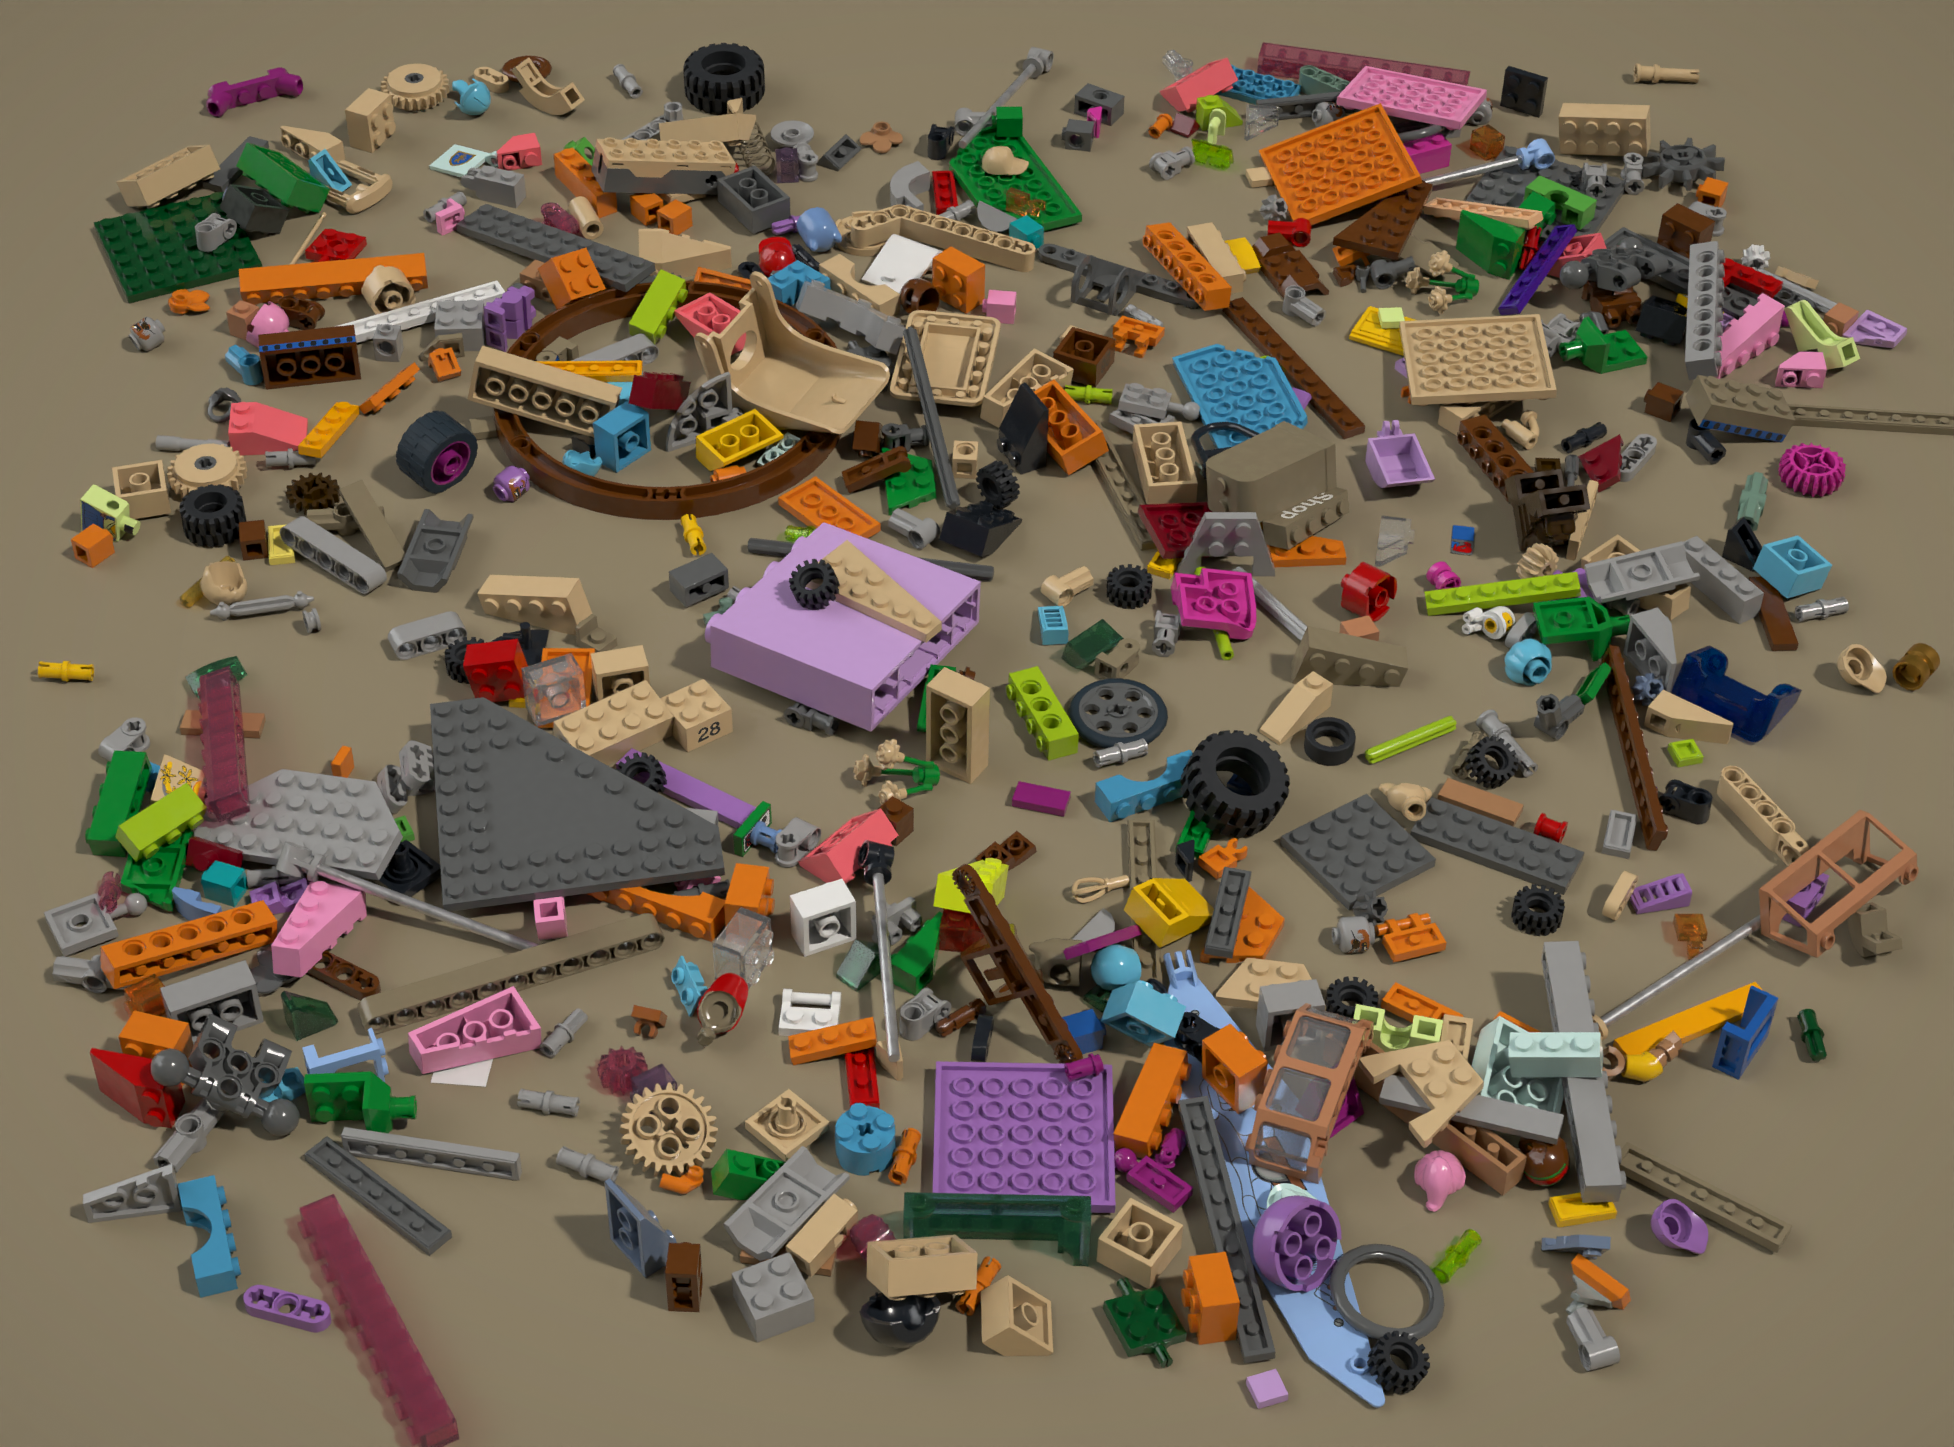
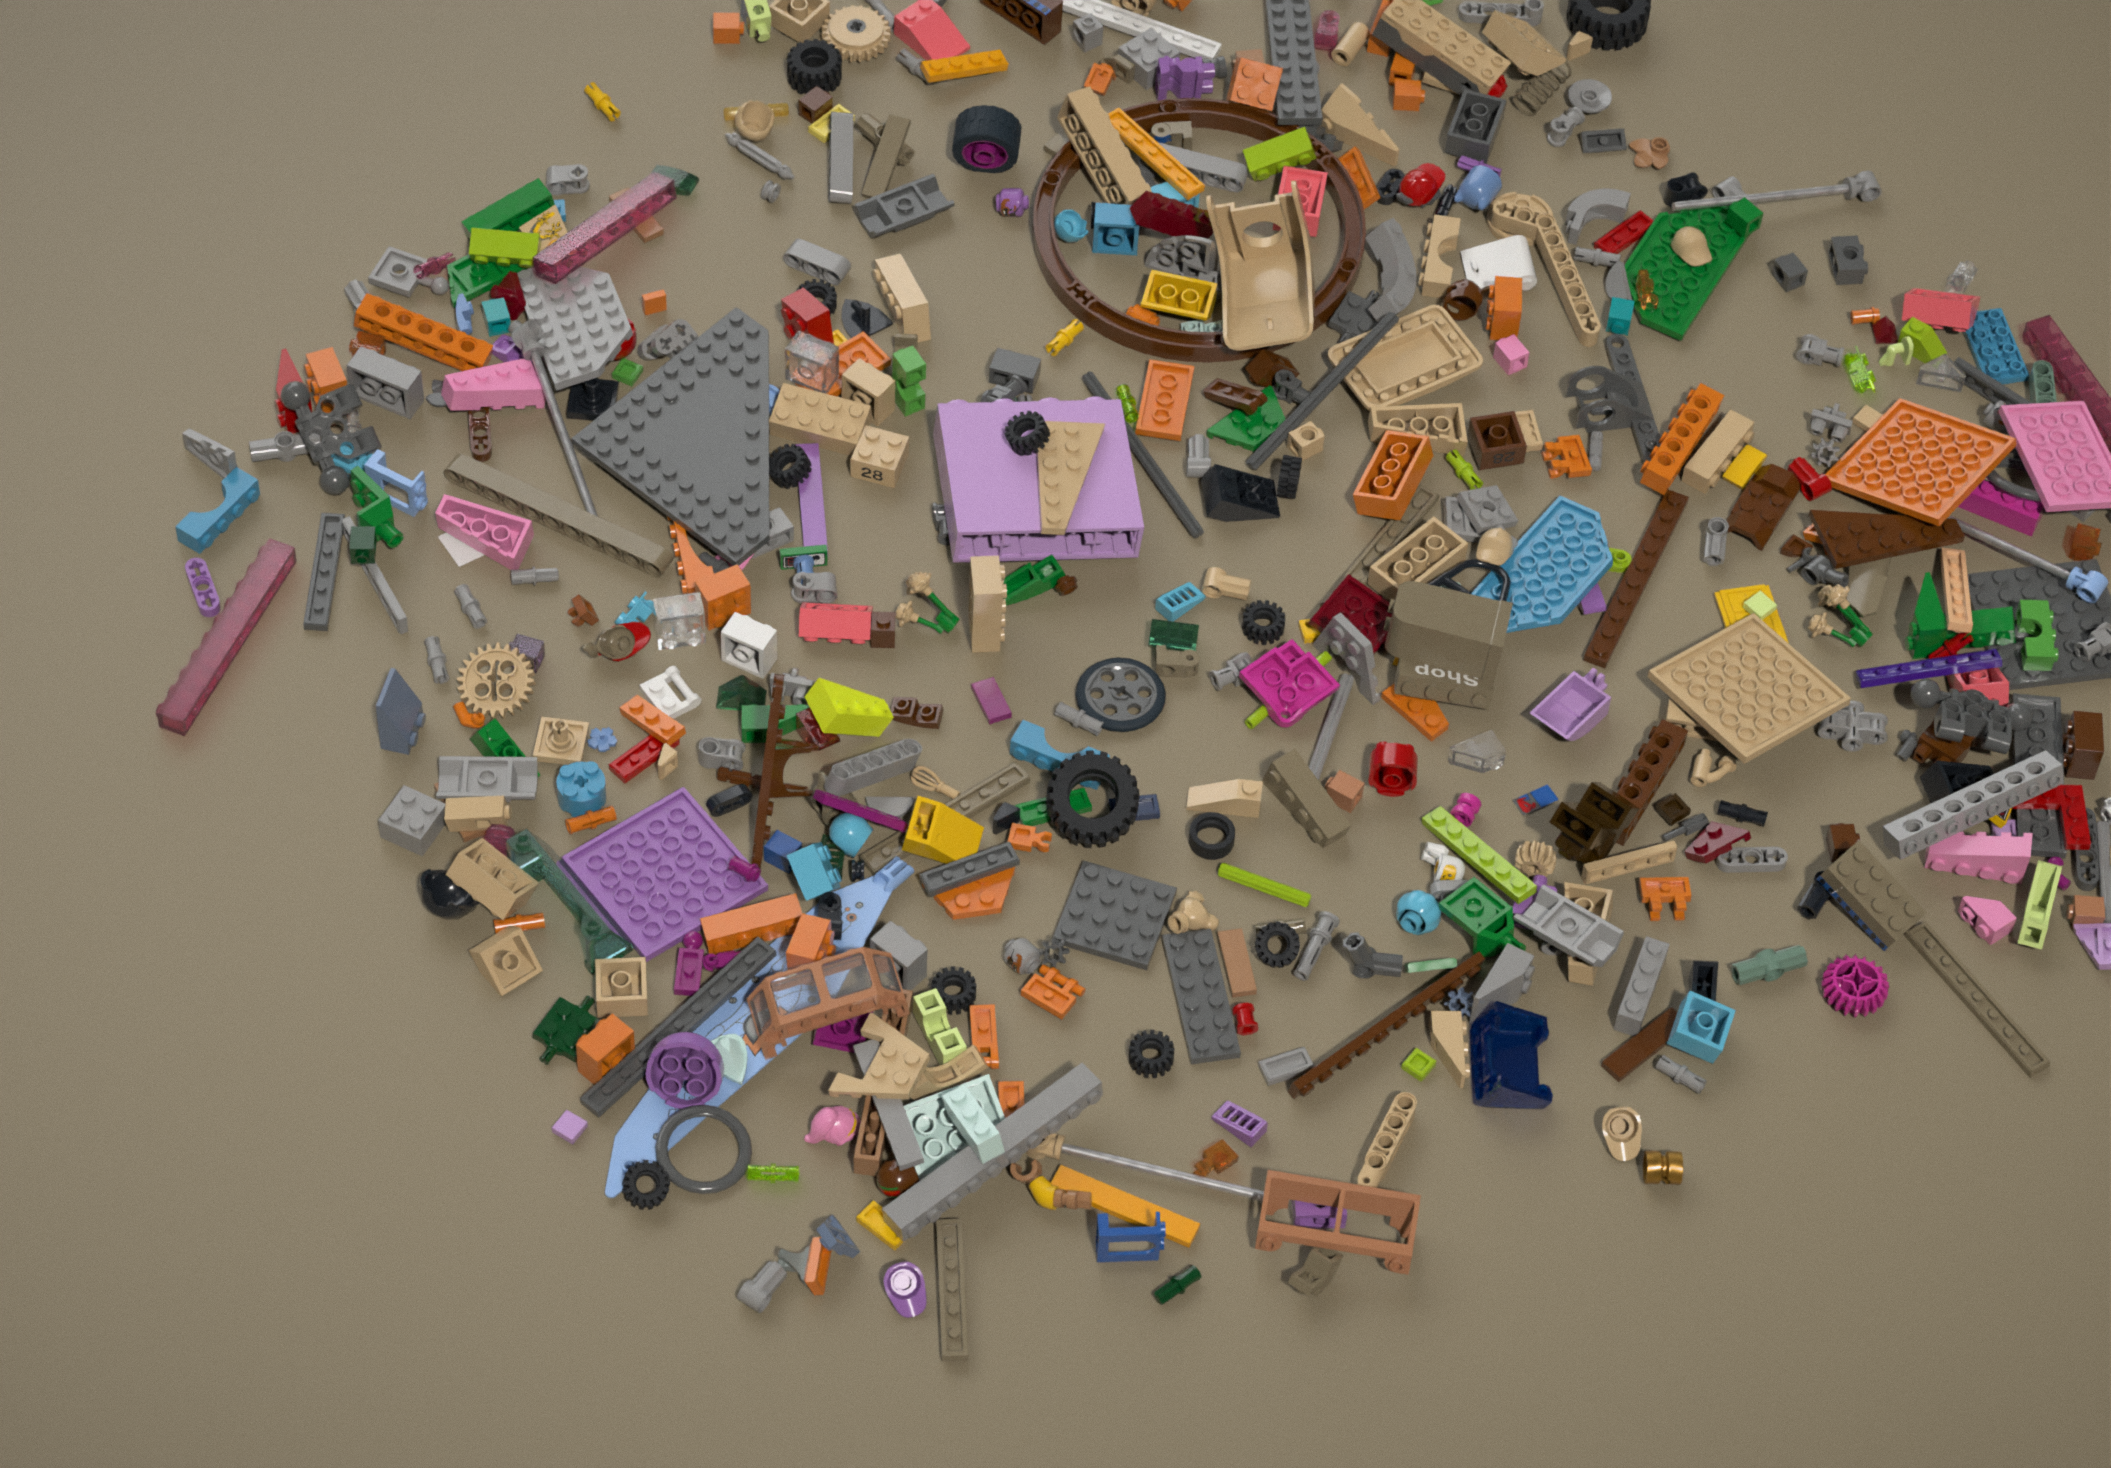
camera: 50 degrees right, 10 degrees up
(306, 1015) = (427, 435): clear green slope -> none
(312, 493) = (892, 101): dark brown gear -> none
(390, 389) = (1042, 68): orange plate -> none
(400, 1131) = (363, 545): none -> dark green brick
(550, 918) = (612, 504): bright pink arch -> none
(619, 1067) = (528, 623): clear pink gear -> none
(643, 627) = (908, 371): none -> bright green arch
(684, 1277) = (383, 763): reddish brown brick -> none
(723, 595) = (1008, 391): none -> dark grey connector
(787, 165) = (1541, 117): brick -> none
(789, 281) = (1404, 211): dark azure brick -> none
(813, 1095) = (602, 739): none -> medium blue plant
(877, 861) = (826, 640): flat silver piece -> none
(1025, 431) = (1356, 457): black slope -> none
(1042, 713) = (1073, 649): lime brick -> none
(1058, 907) = (873, 767): none -> light grey beam
(1095, 115) = (1821, 271): dark pink slope -> none
(1193, 412) = (1495, 546): none -> tan piece
(1244, 984) = (935, 930): tan wing -> none
(1245, 190) = (1833, 420): none -> light grey hips
(1603, 352) = (1871, 769): green plate -> none
(1620, 895) = (1210, 1095): tan beam -> none
(1626, 520) = (1665, 890): none -> orange plate
(1687, 802) = (1355, 1086): black piece -> none

